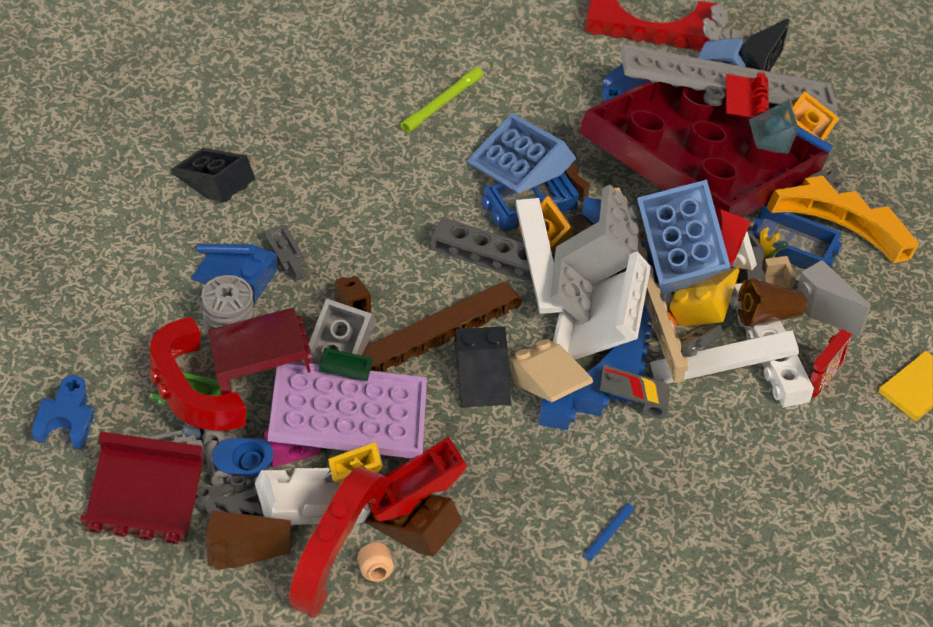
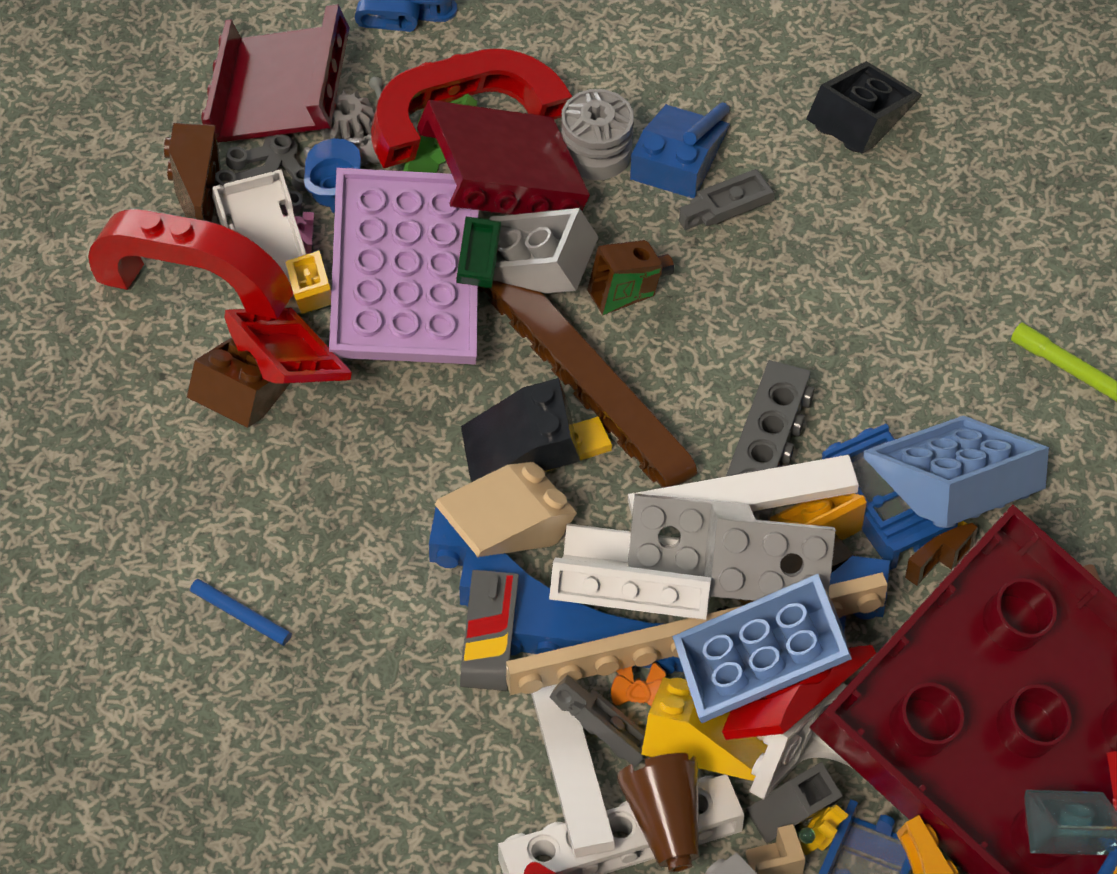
camera: 90 degrees right, 5 degrees up
(375, 562) = (174, 331): light nougat head -> none

